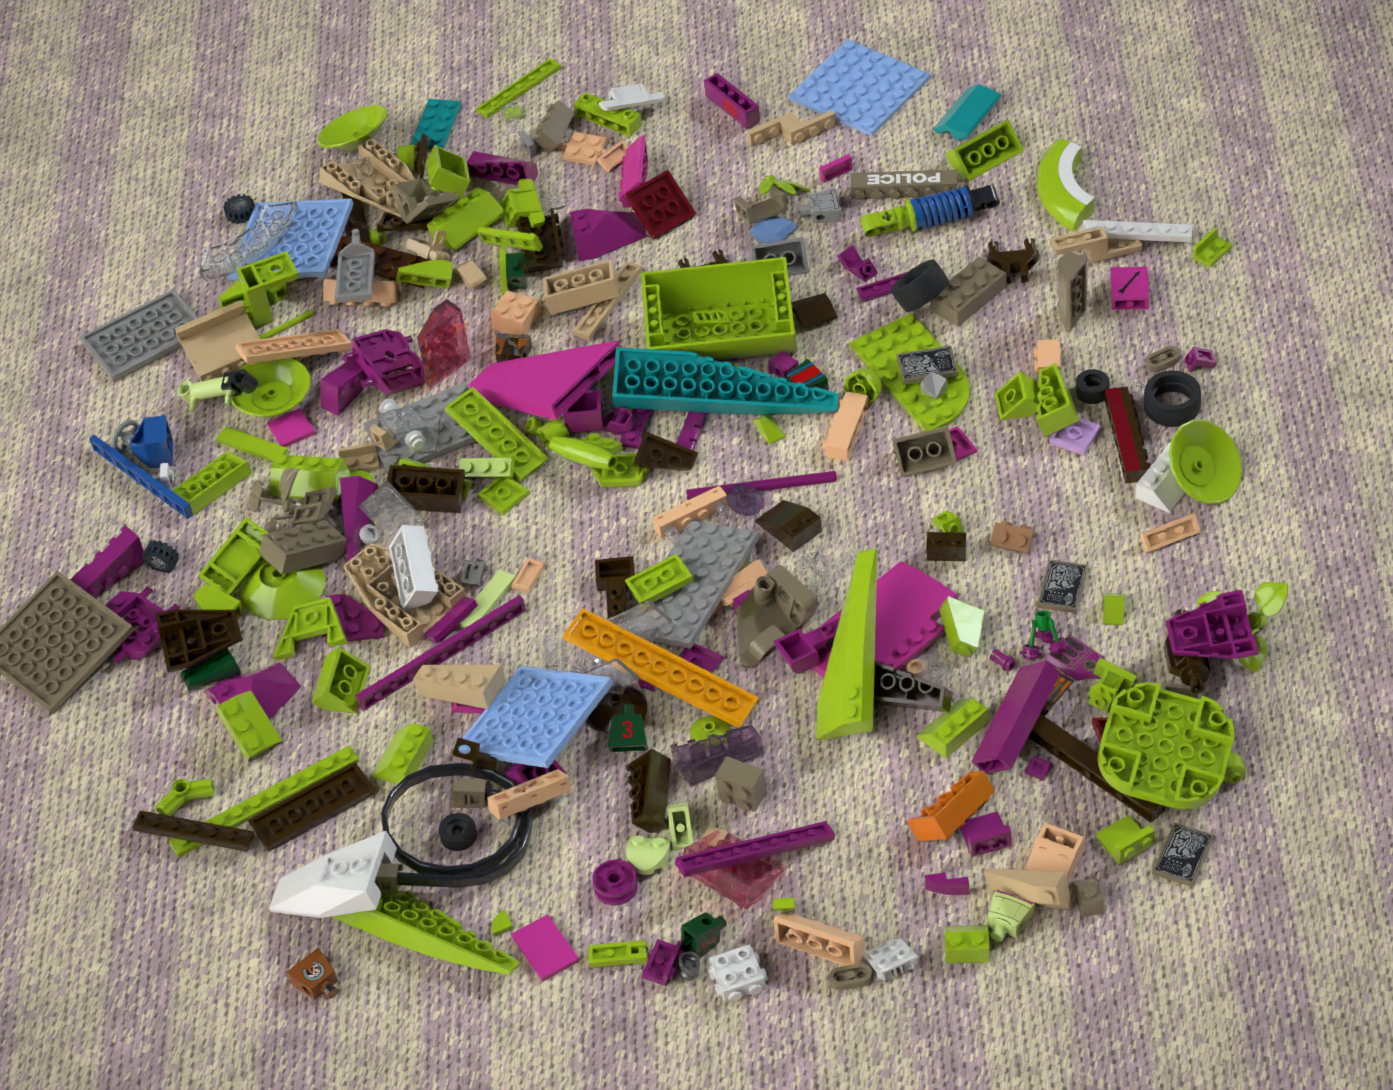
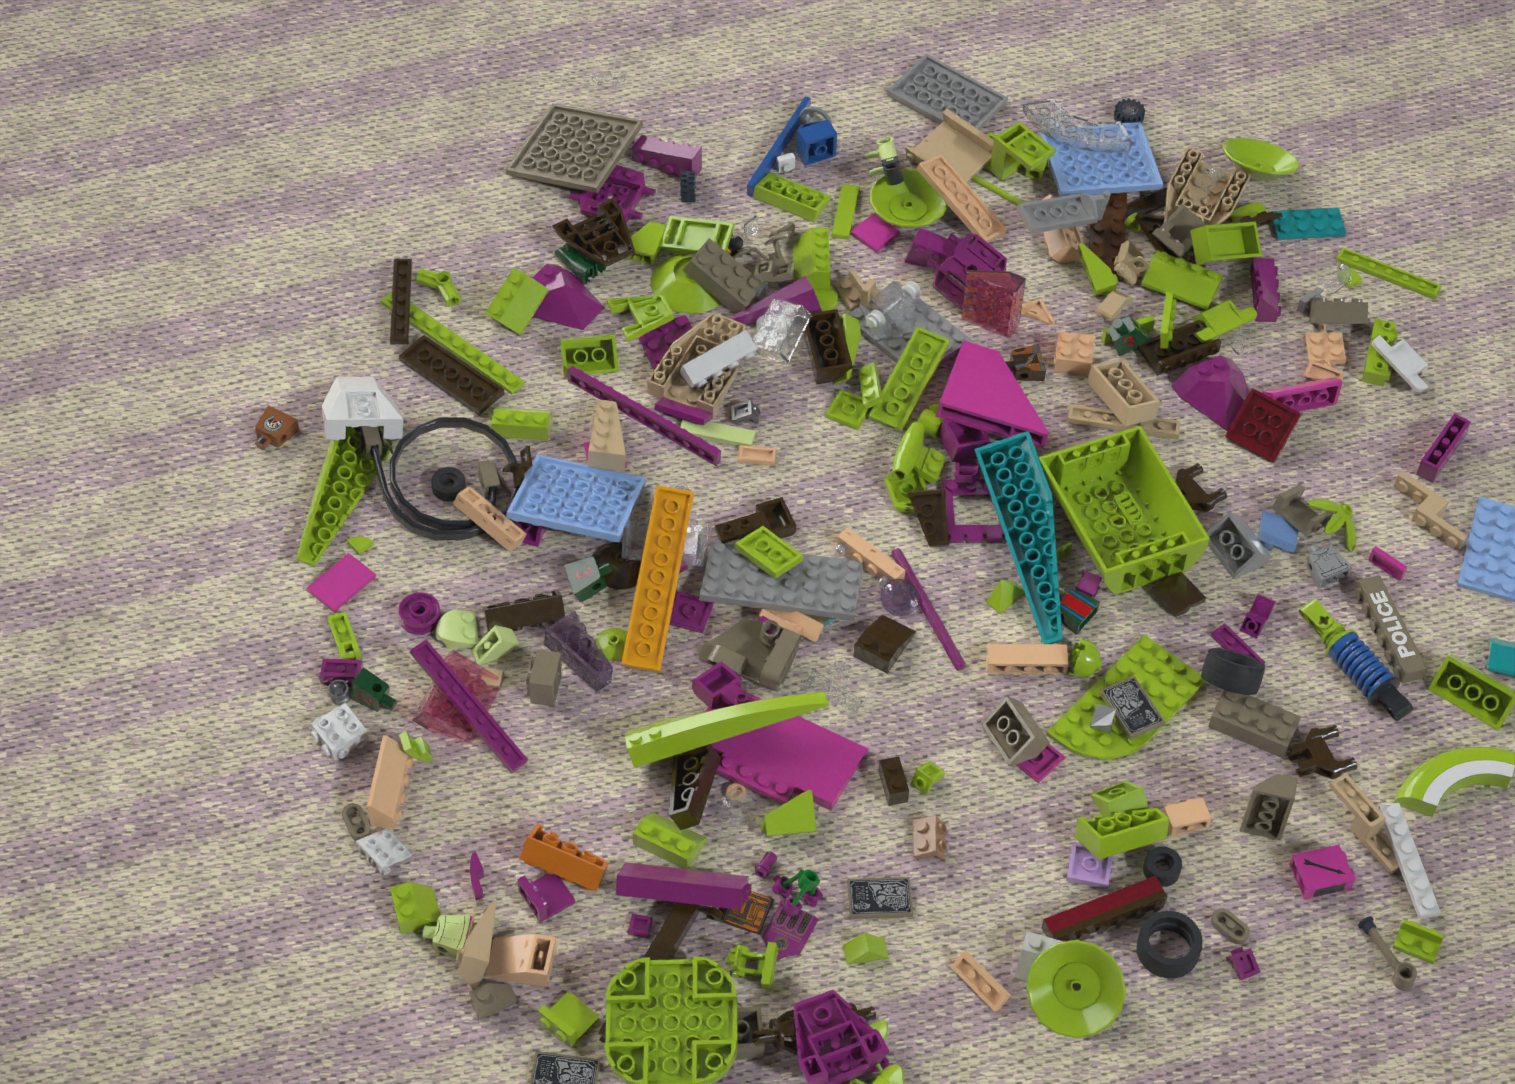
camera: 65 degrees right, 5 degrees up
(1240, 265) = (1403, 968): none -> dark tan piece

